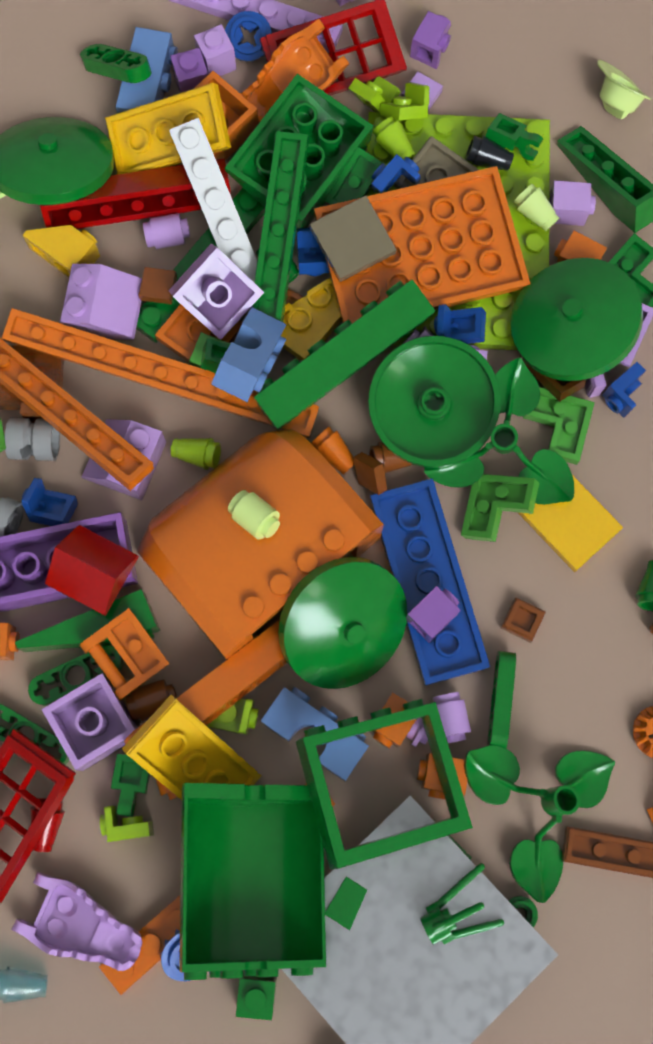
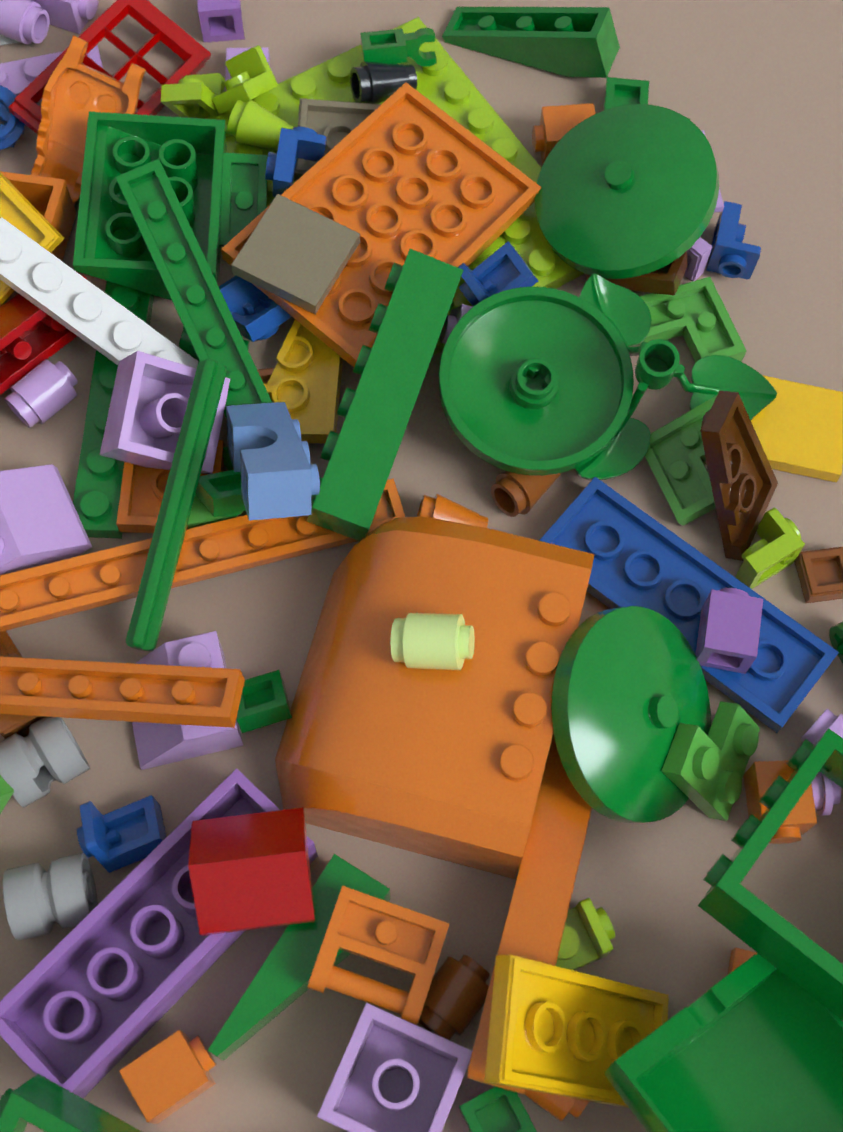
camera: 35 degrees left, 10 degrees down
(49, 676) = (288, 1071): green beam -> none
(156, 285) = (79, 460): dark orange tile -> none
(163, 483) = (263, 702): none -> green plate
(187, 346) = (176, 506): none -> green axle
(197, 451) = (275, 634): lime cone -> none
(292, 712) = (647, 880): medium blue arch -> none
(370, 473) = (517, 515): dark orange tile -> none
(372, 682) = (713, 765): none -> bright green plate
(493, 589) = (774, 552): none -> lime bracket
(508, 530) = (737, 472): none -> reddish brown wing
(536, 207) = (481, 106): yellowish green cone -> none
(572, 202) = (512, 85): lavender brick -> none

